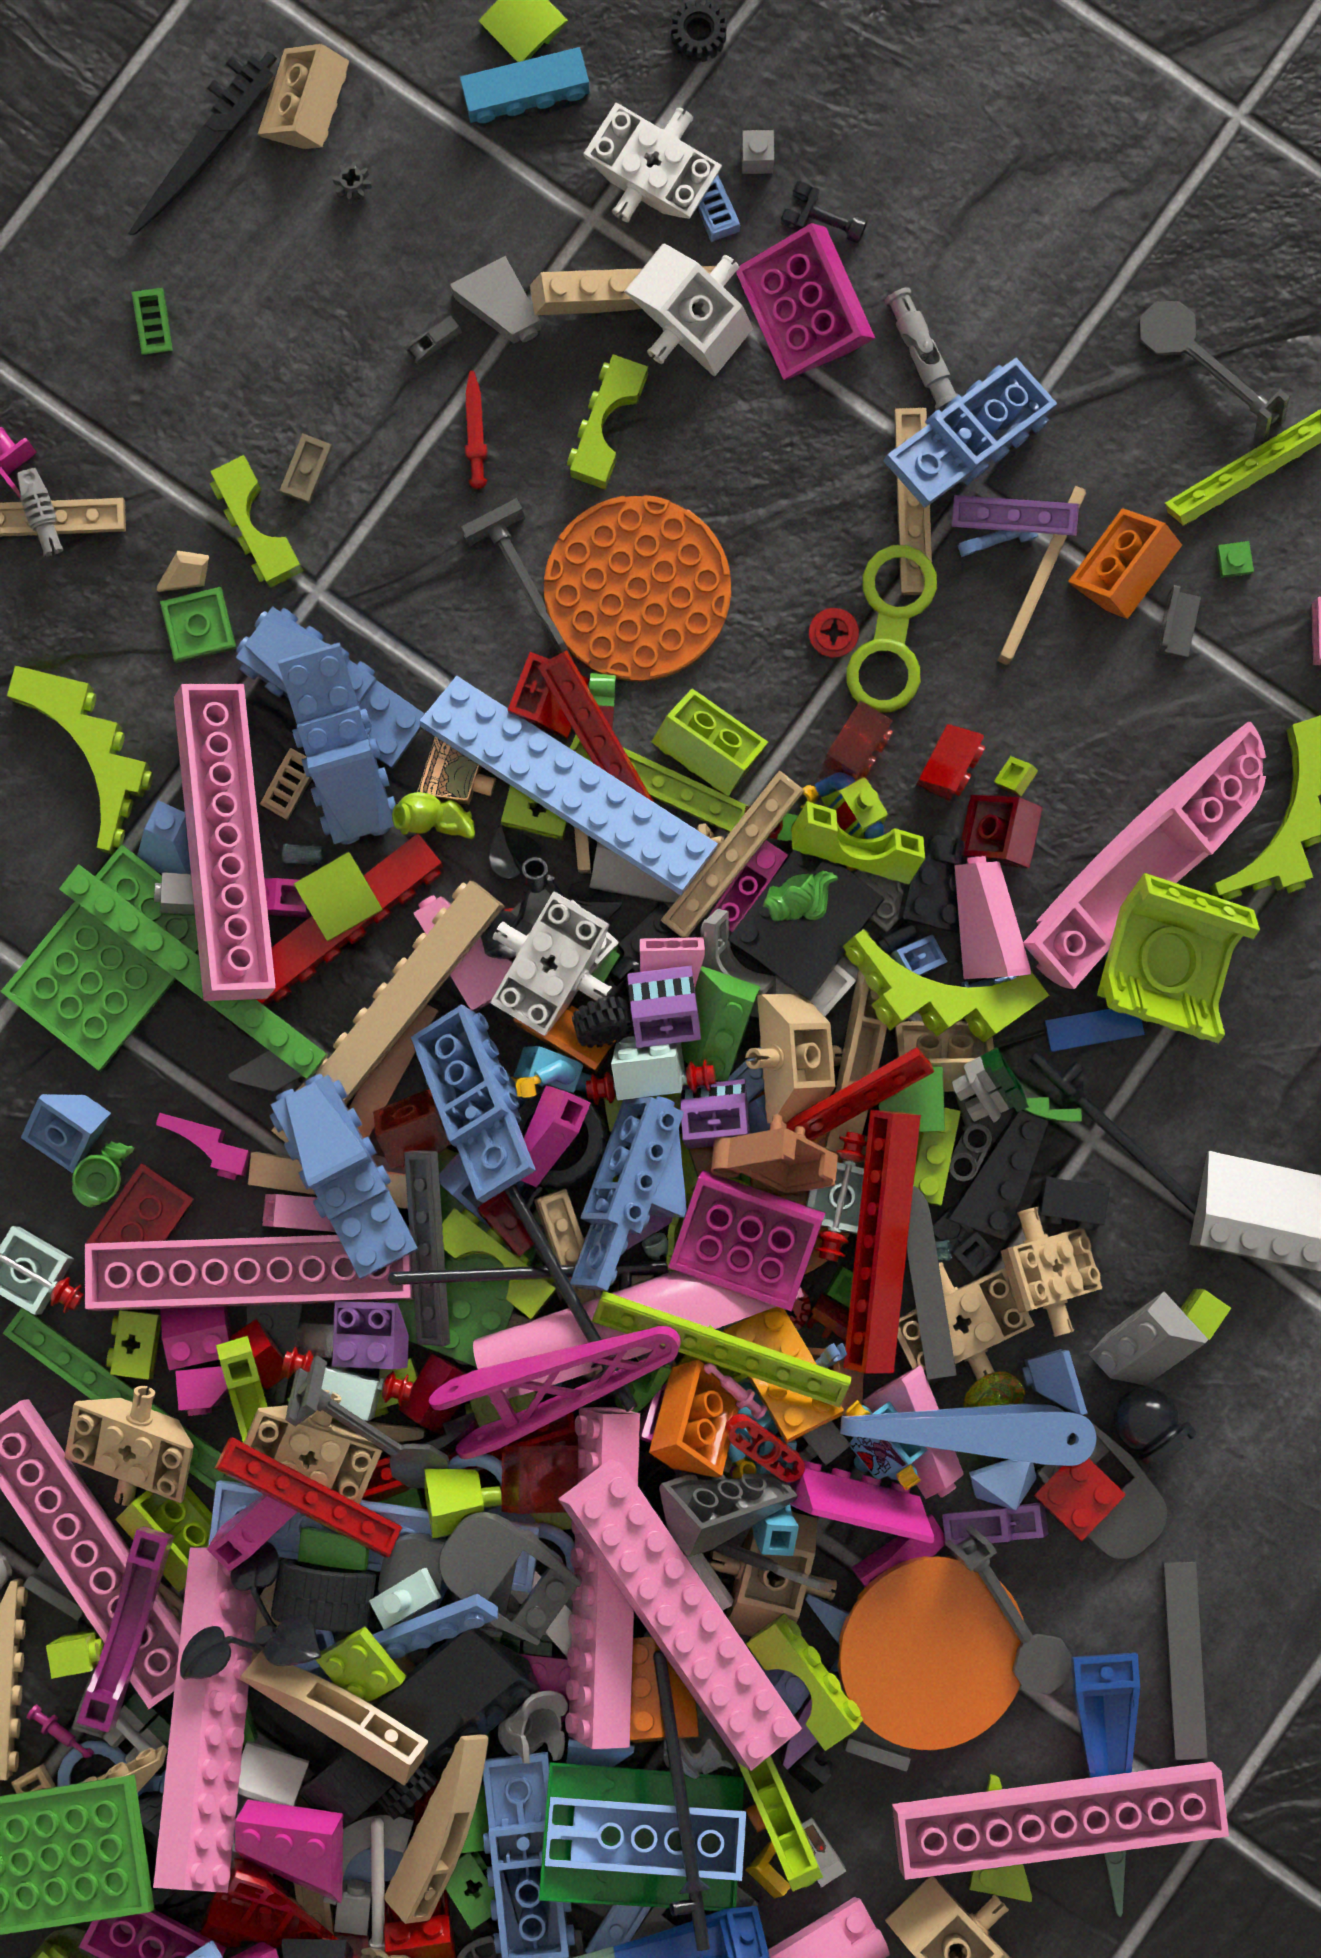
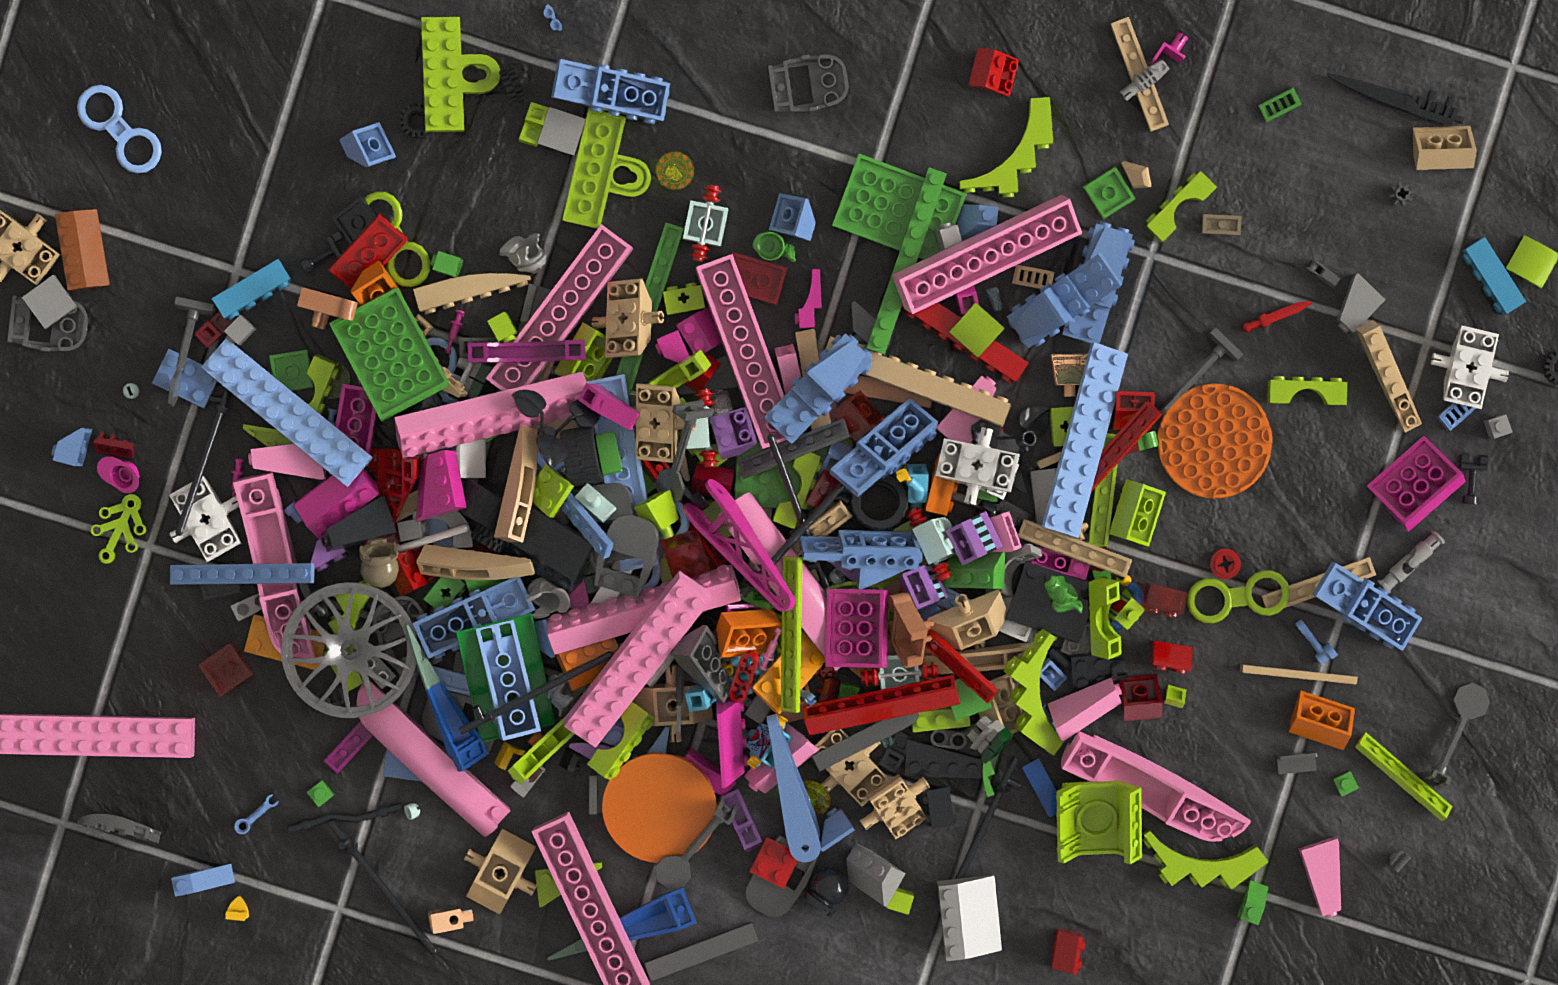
camera: 75 degrees right, 5 degrees up
(308, 1497) = (634, 431): red tile -> none
(422, 811) = (1042, 361): lime animal -> none
(553, 1129) = (884, 498): dark pink slope -> none
(602, 1022) = (954, 506): black tyre -> none
(666, 293) = (1393, 403): white slope -> none
(1003, 1482) = (767, 818): light blue slope -> none
(1015, 515) = (1328, 647): medium lavender tile -> none

